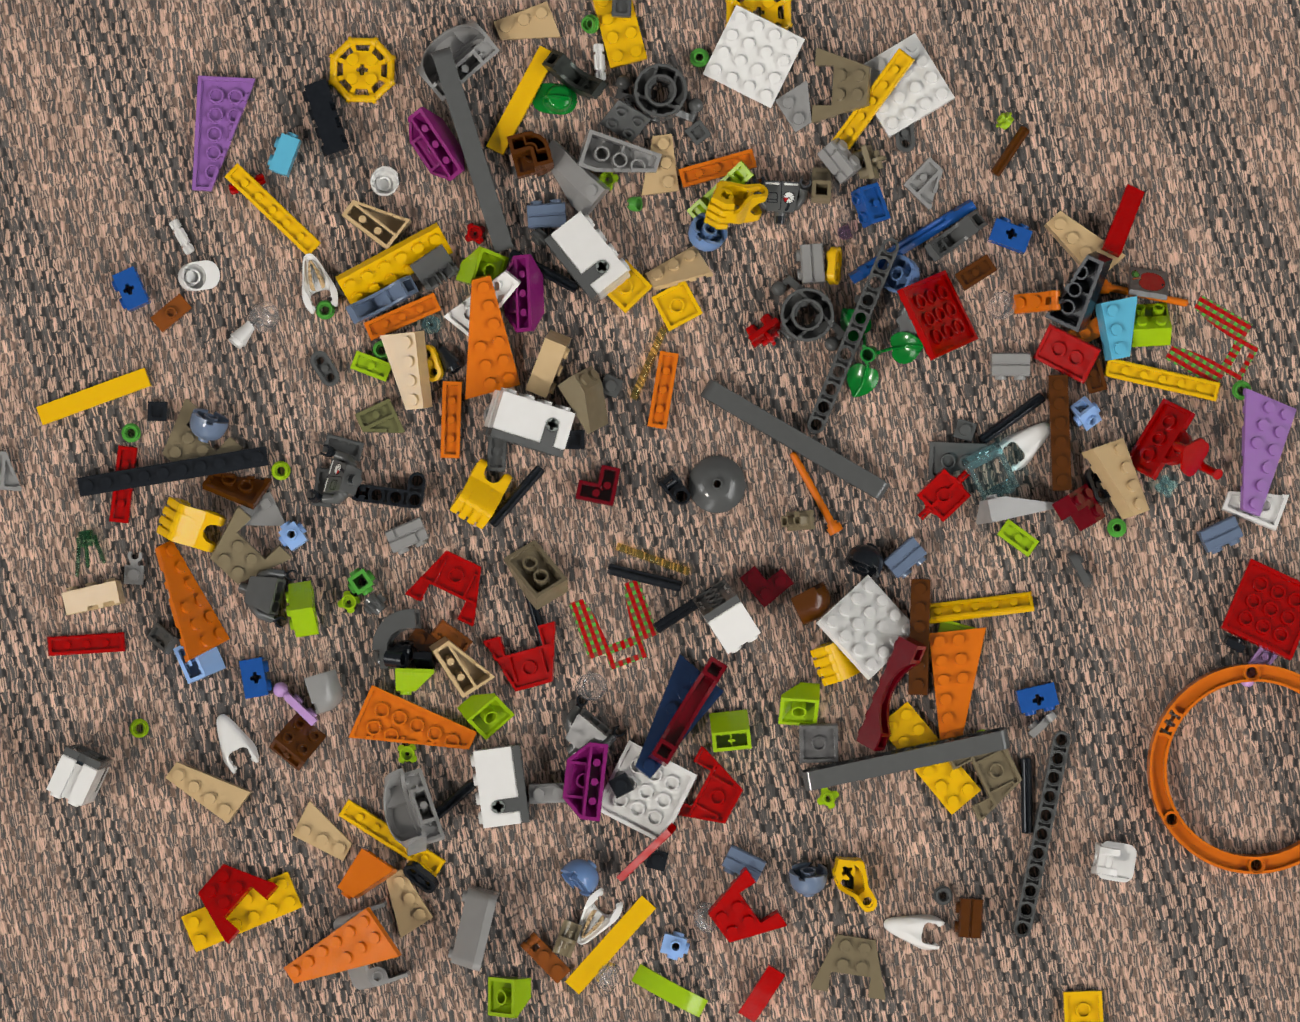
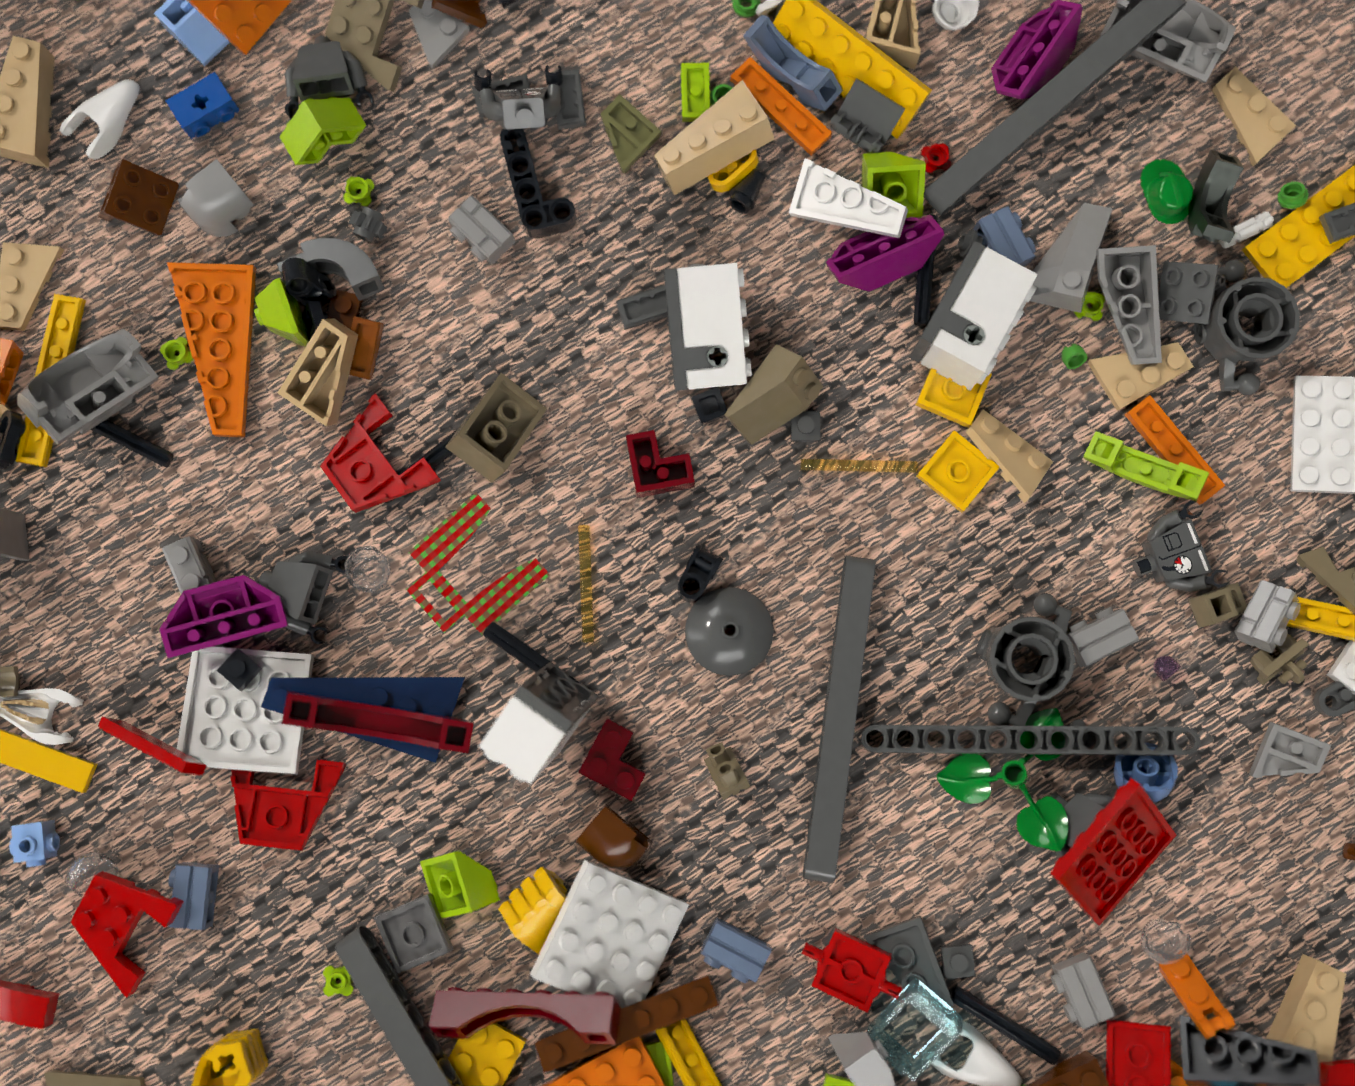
camera: 65 degrees right, 5 degrees down
(276, 466) = (503, 23): lime plate -> none
(281, 690) = (188, 167): lavender plate -> none
(299, 538) = (418, 77): light blue brick -> none
(324, 369) = (663, 33): dark grey plate -> none
(354, 584) = (391, 192): bright green brick -> none
(431, 329) = (786, 156): clear light blue plate -> none
(451, 419) = (666, 226): orange plate -> none
(455, 577) = (449, 321): red wing -> none
(479, 496) = (573, 304): yellow piece -> none
(485, 713) = (270, 436): lime slope -> none
(489, 352) = (789, 233): orange wing -> none
(500, 779) = (172, 498): white piece -> none
(516, 496) = (597, 358): black axle -> none
(519, 102) = (1138, 146): yellow tile -> none
(530, 154) = (1080, 182): reddish brown brick -> none
(549, 364) = (800, 324): tan wedge -> none
(582, 875) = (89, 666): medium blue cylinder -> none
(644, 577) = (555, 582): black axle -> none
(657, 860) = (152, 769): black plate -> none
(663, 390) = (831, 500): orange plate -> none
(698, 132) = (1211, 402): dark grey plate -> none
(703, 62) = (1309, 367): bright green plate -> none
(705, 236) = (1080, 469): medium blue cylinder -> none
(730, 730) = (379, 796): lime slope -> none
(734, 203) = (1143, 489): yellow piece -> none
(766, 333) = (972, 611): red hips -> none
(796, 107) = (1309, 525): light grey wing -> none
(808, 879) = (204, 1001): sand blue cylinder -> none
(833, 525) = (739, 823): orange piece -> none
(834, 260) = (1119, 668): yellow plate -> none
(865, 560) = (708, 893): black cylinder -> none
(870, 205) = (1221, 686): blue bracket -> none
(916, 238) = (1207, 777): blue piece -> none
(955, 235) = (1237, 832): dark grey arch -> none
(975, 272) = (1193, 881): reddish brown plate -> none
(999, 237) = (1263, 896): blue brick -> none

